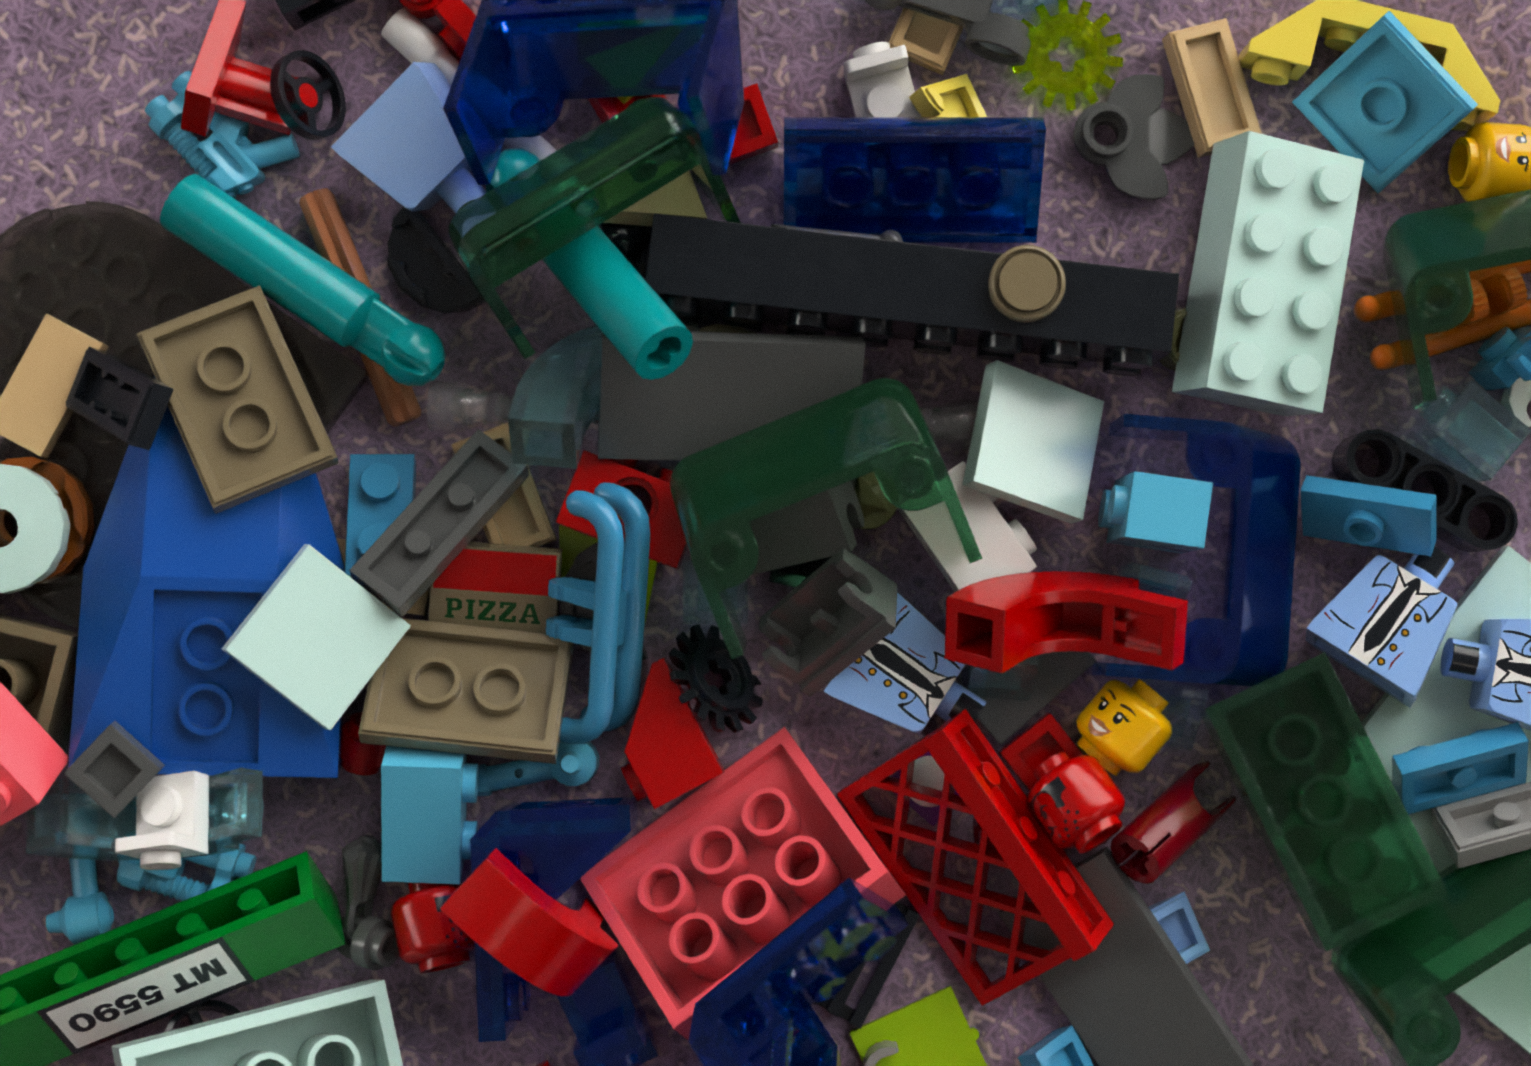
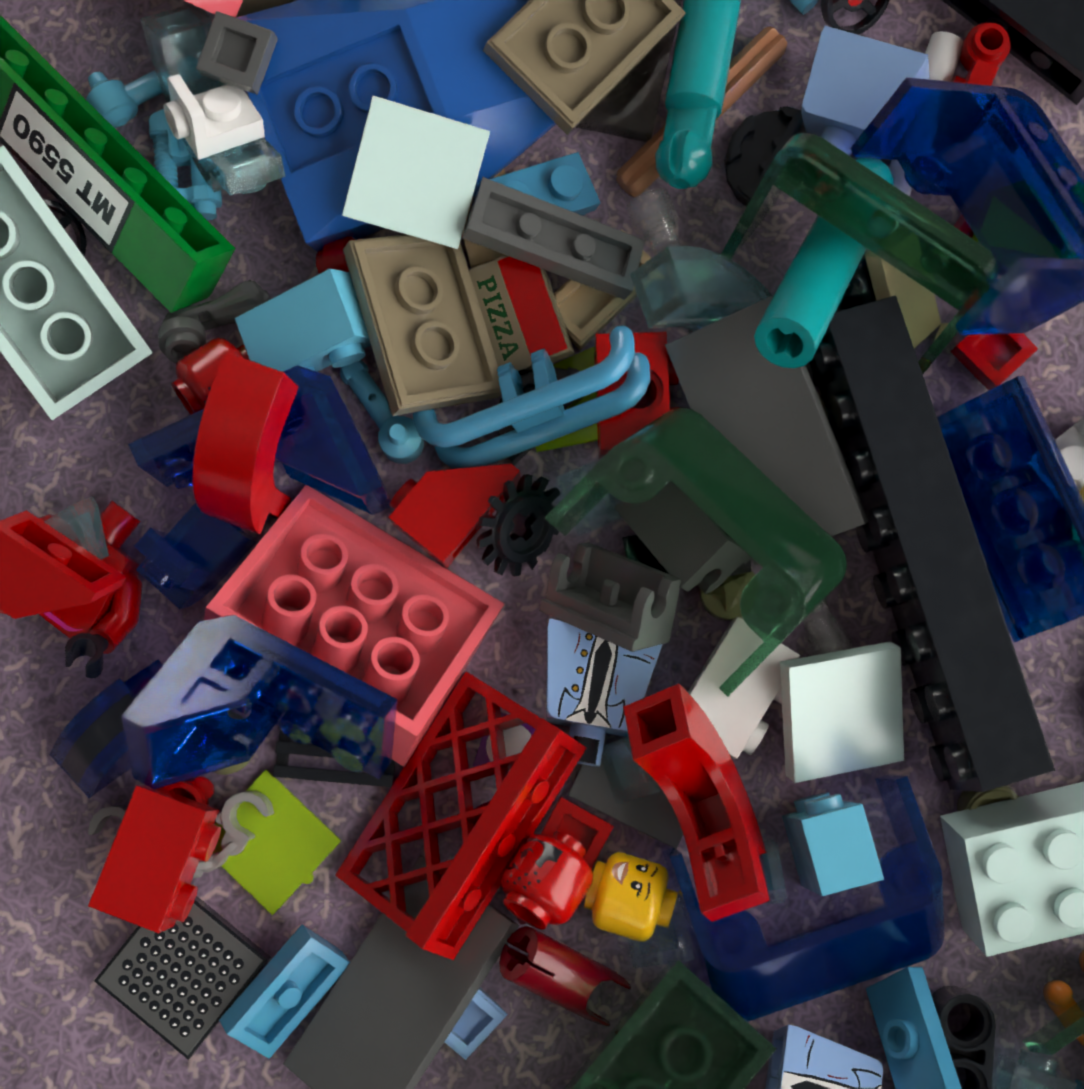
camera: 65 degrees right, 5 degrees down
(1026, 283) = (984, 637): dark tan piece -> none

